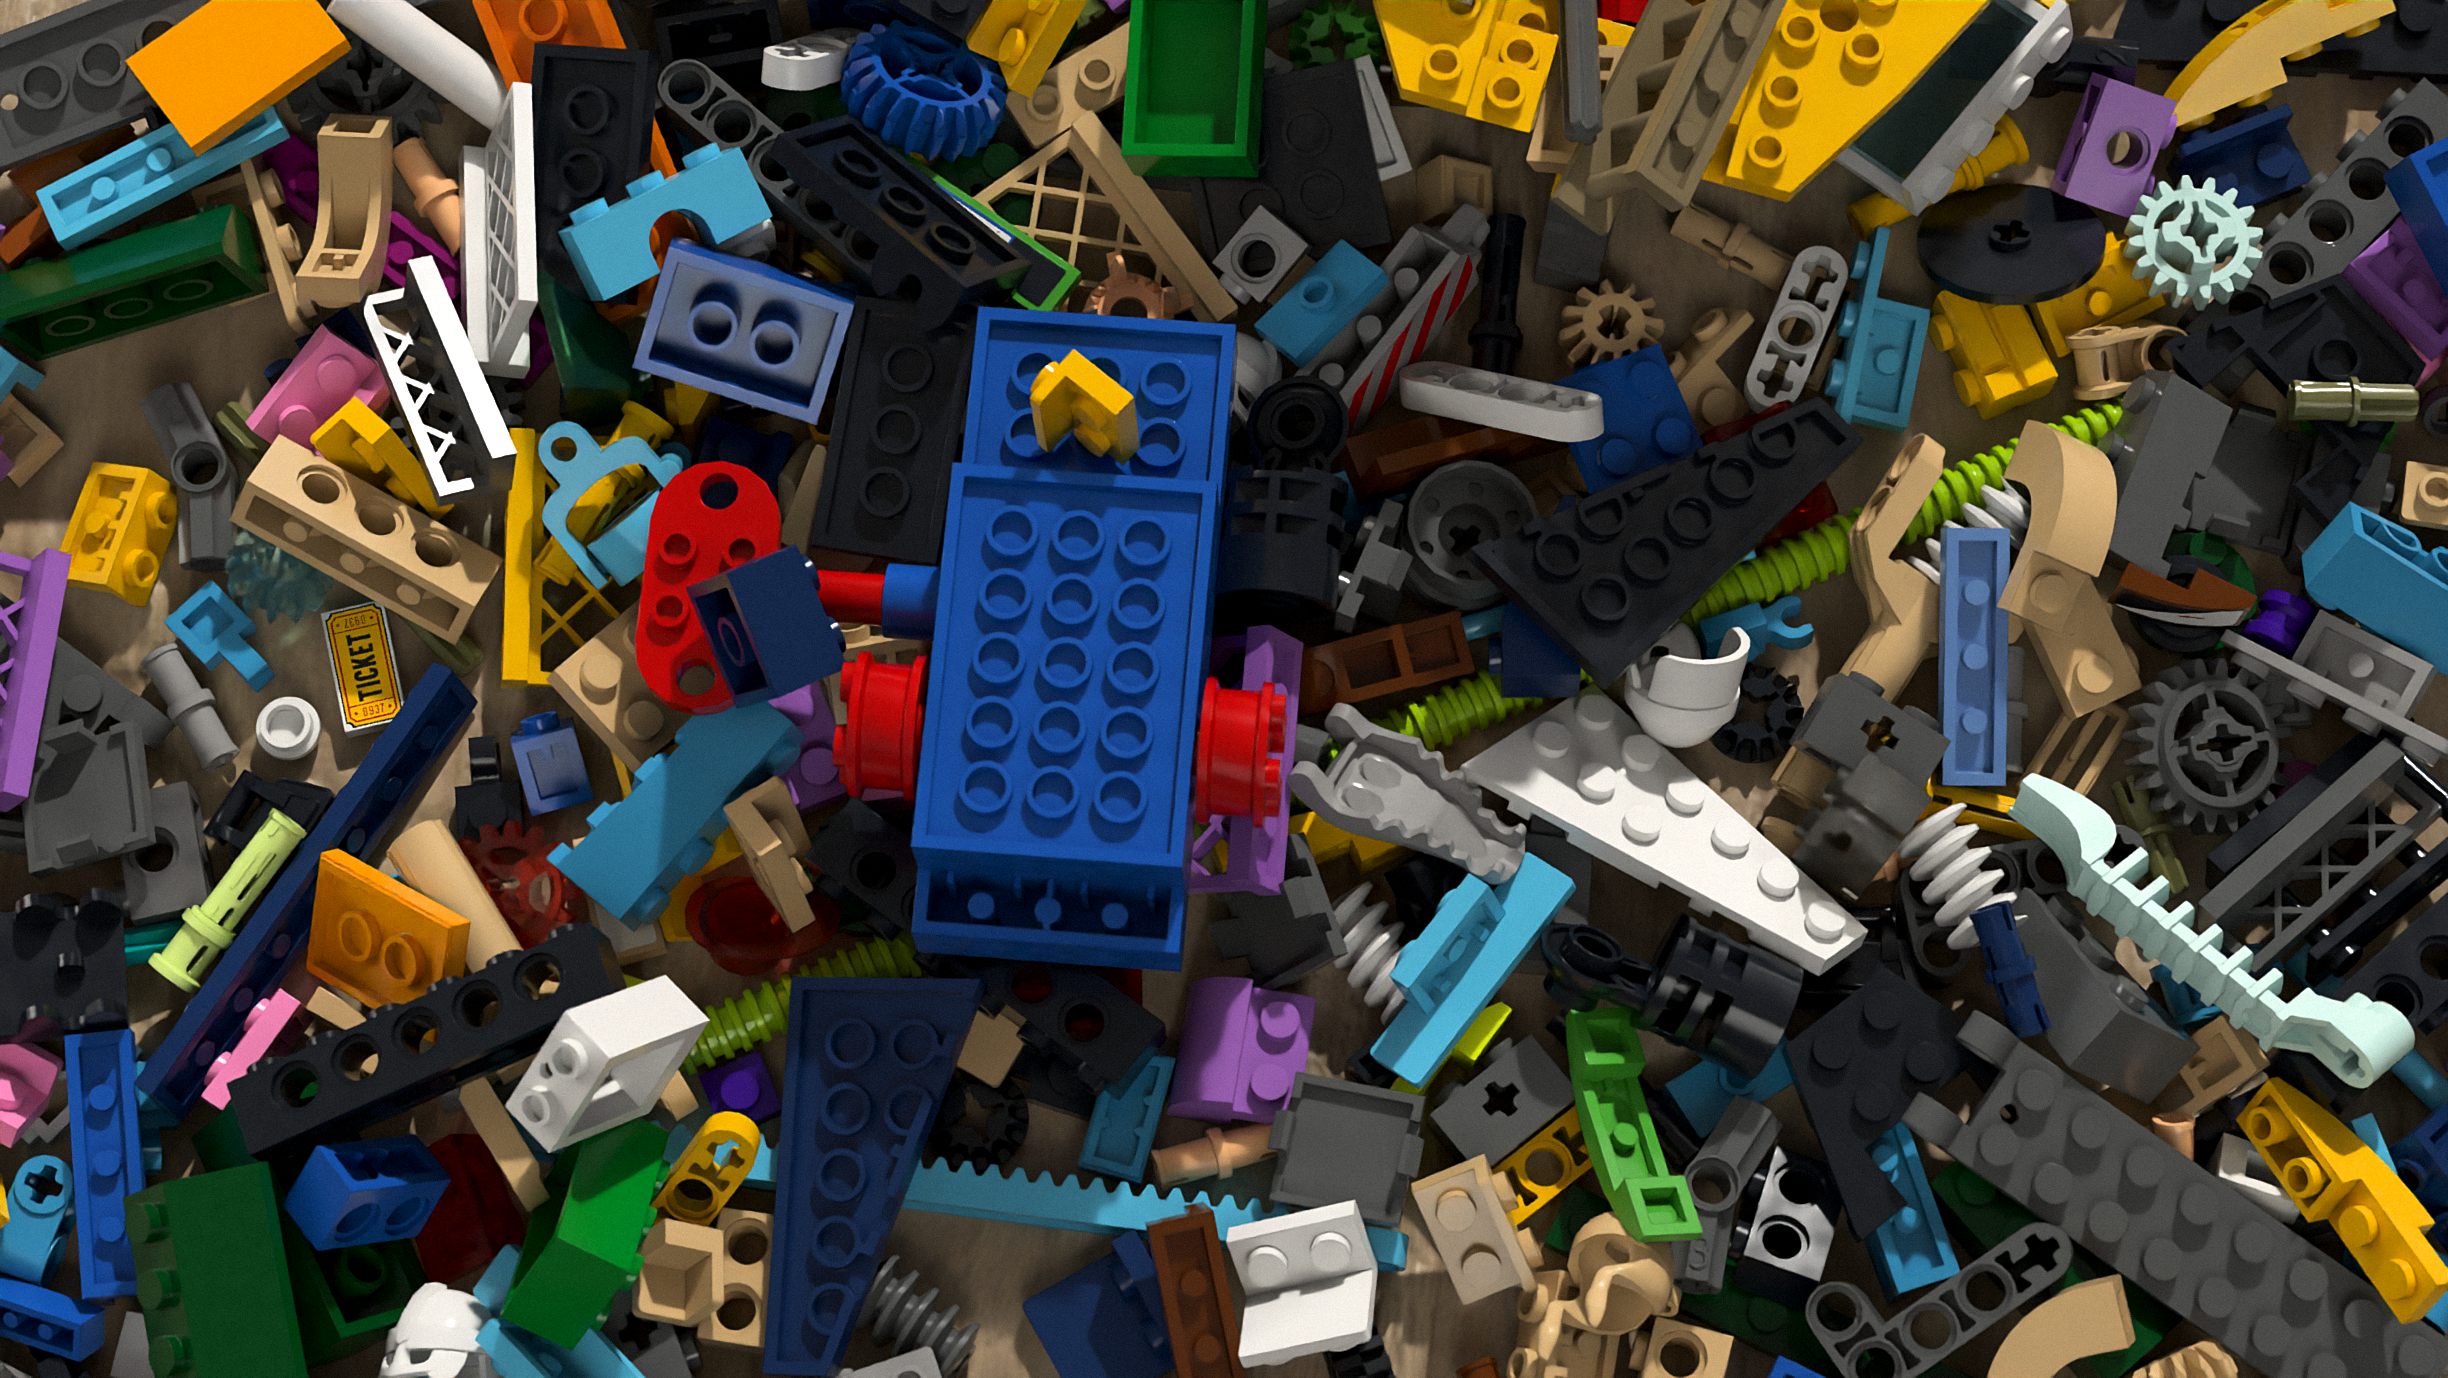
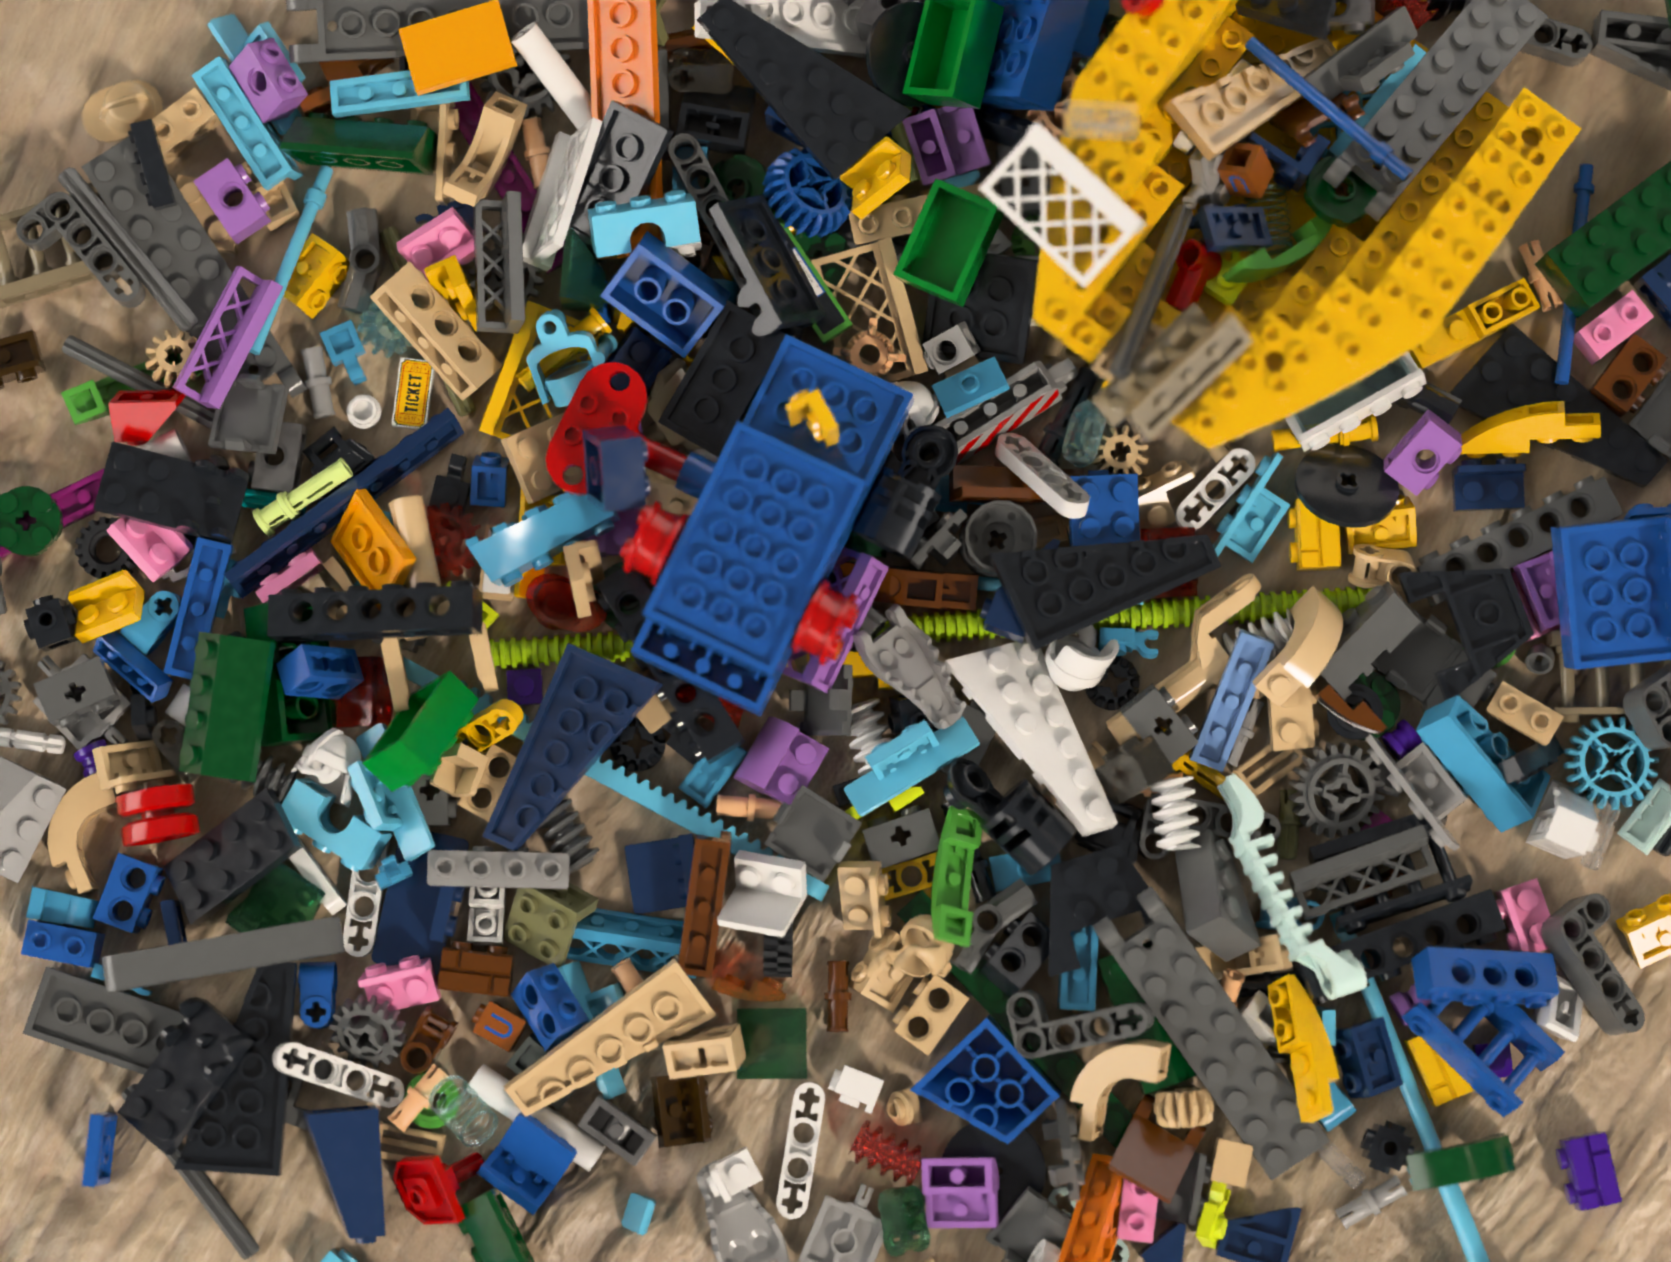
camera: 25 degrees right, 10 degrees up
(78, 410) = (314, 201): none -> medium azure bar
(606, 1063) = (457, 659): white window -> none
(808, 60) = (756, 155): white beam -> none
(1548, 314) = (1083, 433): none -> clear light blue beam
(2010, 969) = (1177, 872): dark blue pin -> none
(2176, 259) = (1454, 524): light aqua gear -> none
(2351, 401) = (1483, 641): olive axle -> none

